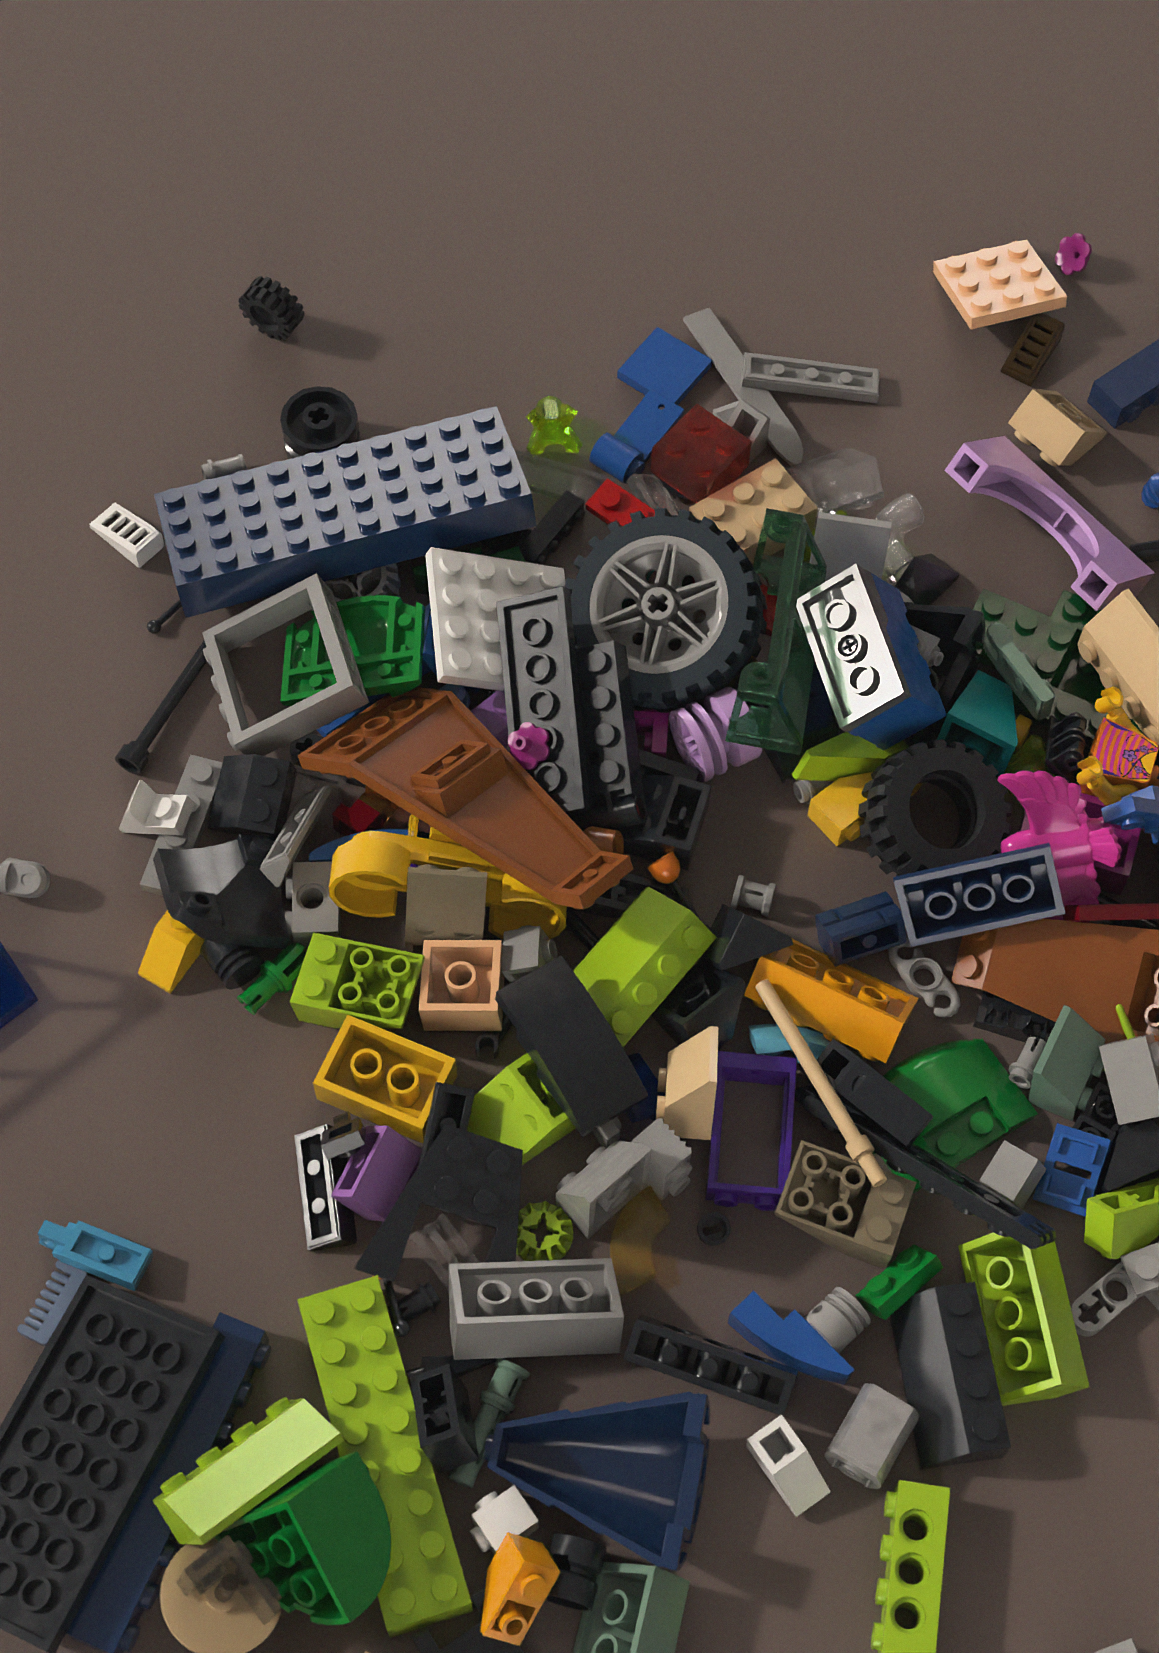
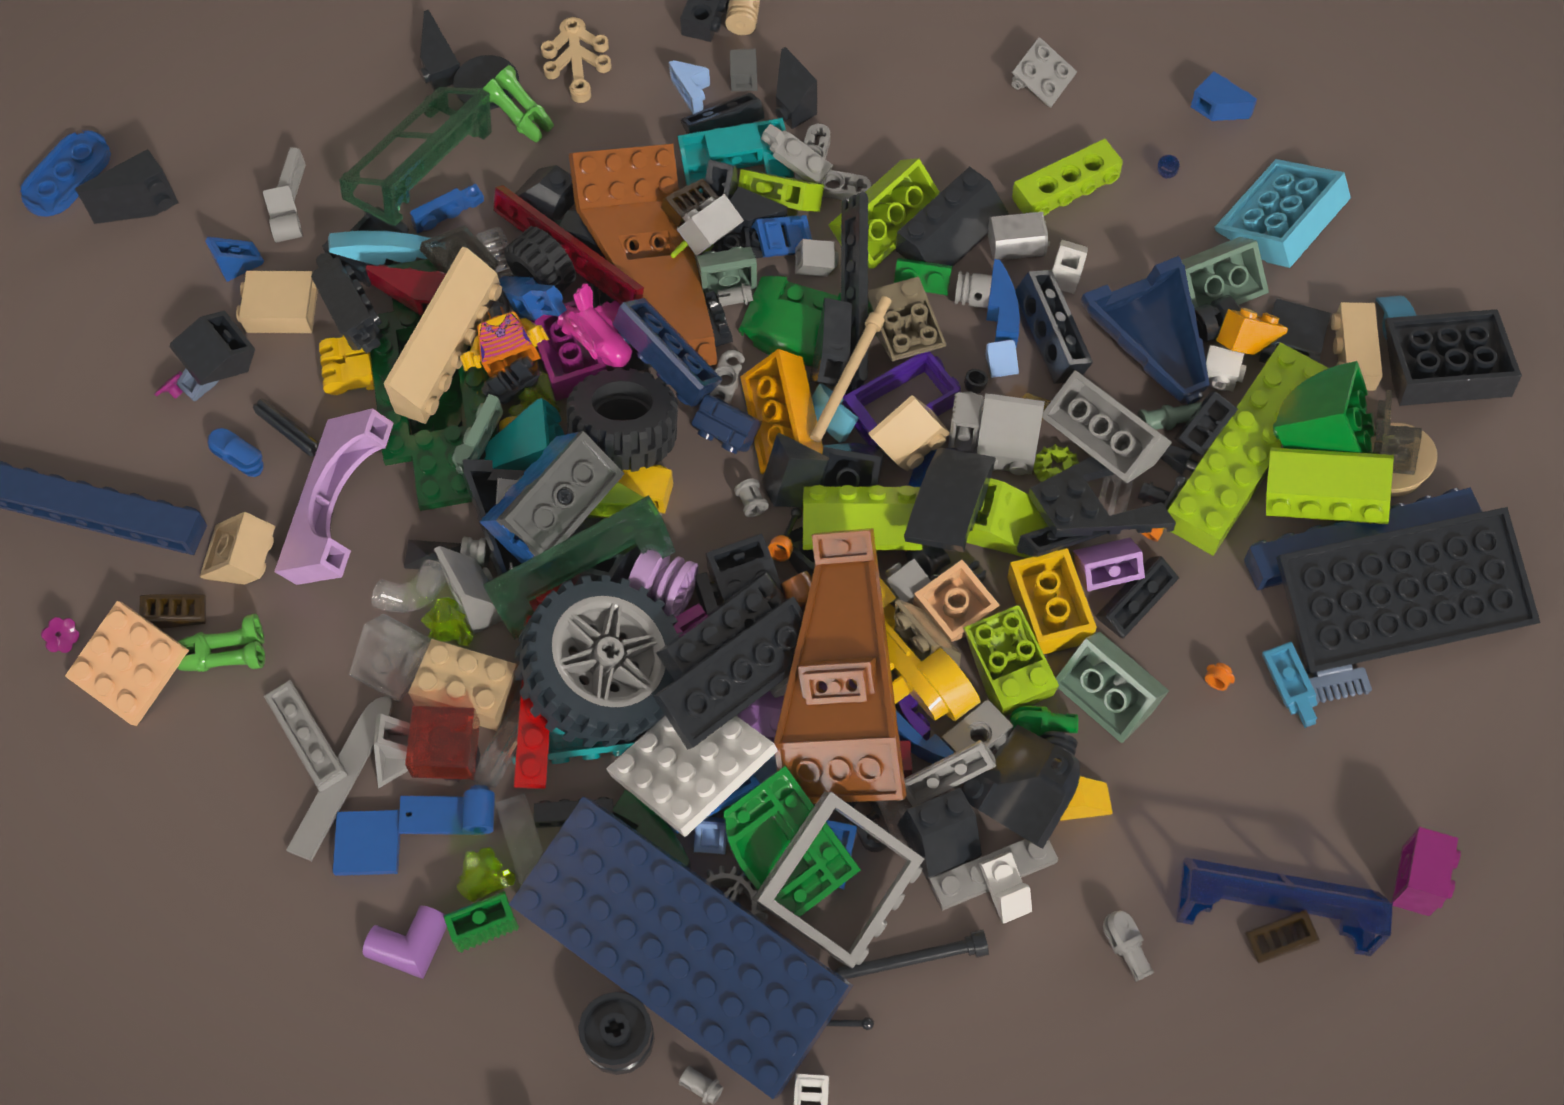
camera: 125 degrees left, 0 degrees up
(169, 1187) = (1219, 676): none -> orange plate
(252, 1071) = (1110, 686): none -> sand green slope
(344, 1138) = (1108, 590): black plate -> none
(510, 389) = (481, 922): none -> green brick
(529, 745) = (775, 662): magenta plant -> none
(537, 345) = (409, 952): none -> medium lavender brick
(719, 1285) = (1002, 358): none -> light blue slope
(956, 390) = (202, 644): none -> bright green piece

